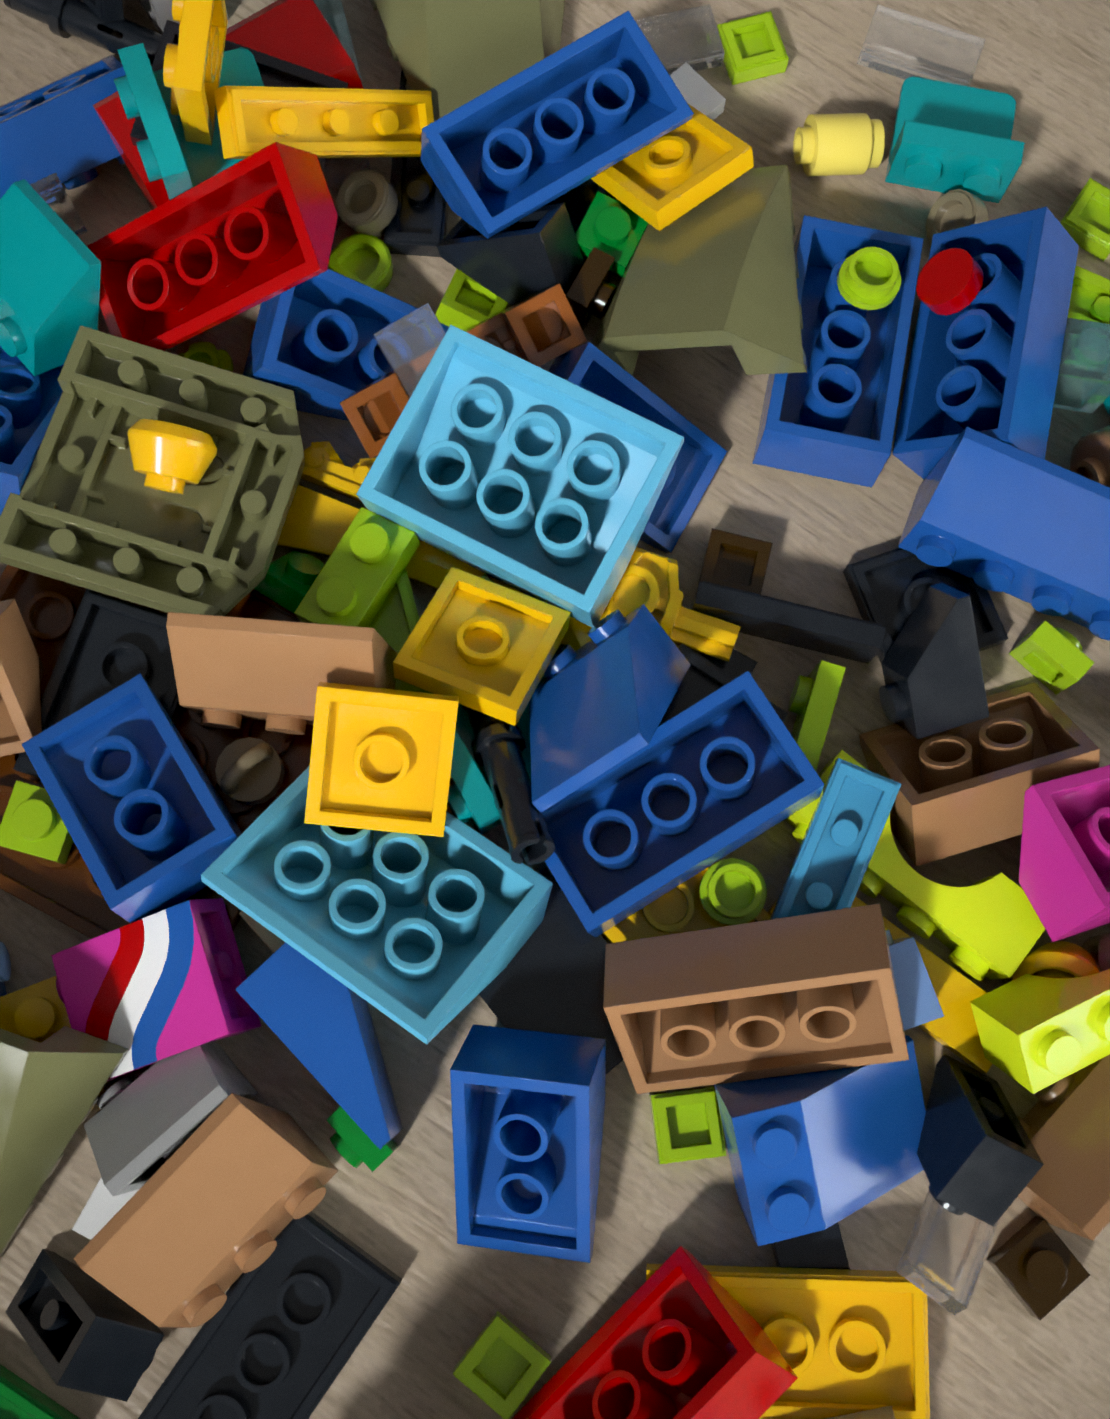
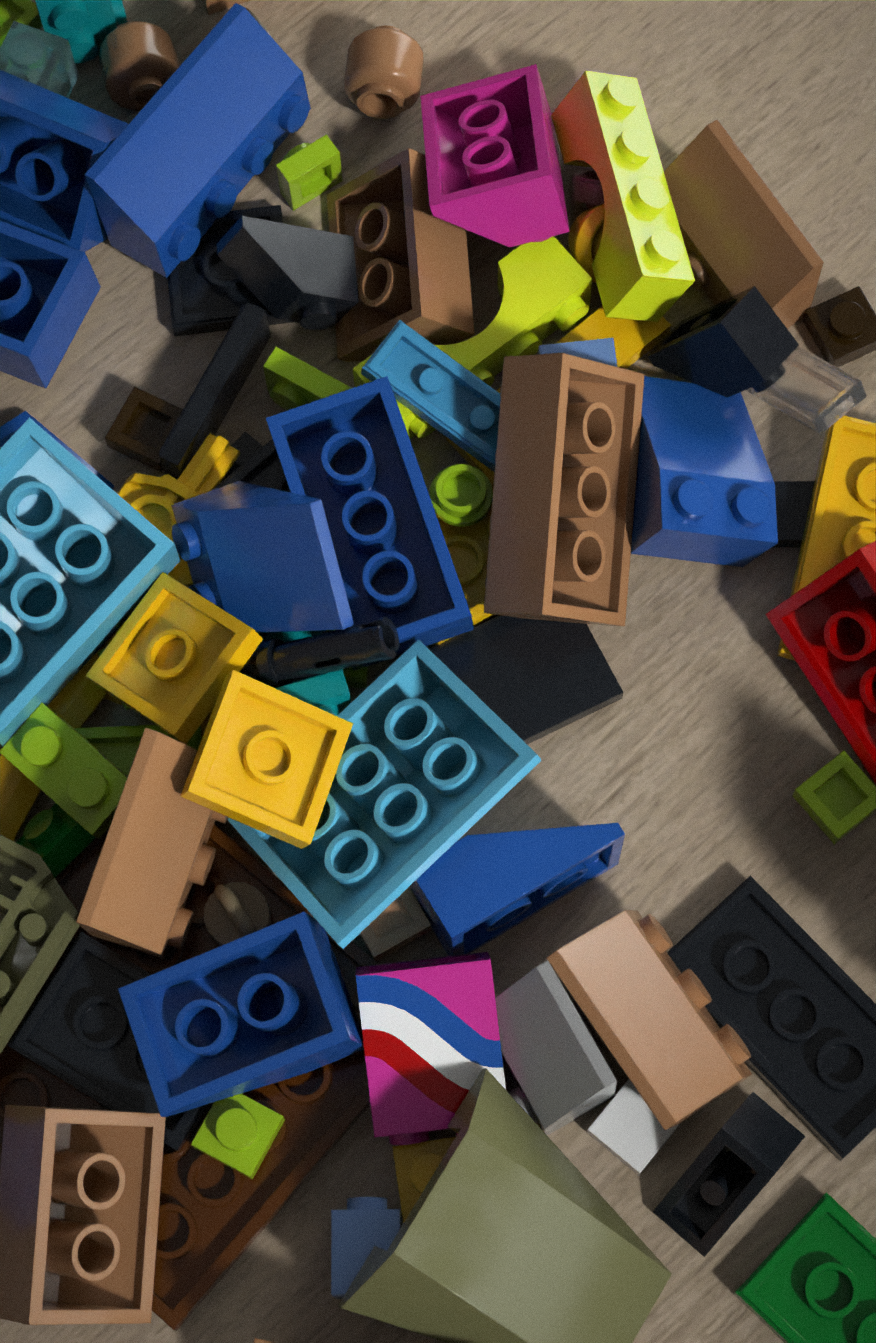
camera: 70 degrees left, 5 degrees down
(355, 1144) = (609, 882): green plate -> none
(528, 1140) = (647, 725): blue slope -> none
(687, 1125) = (662, 593): lime tile -> none

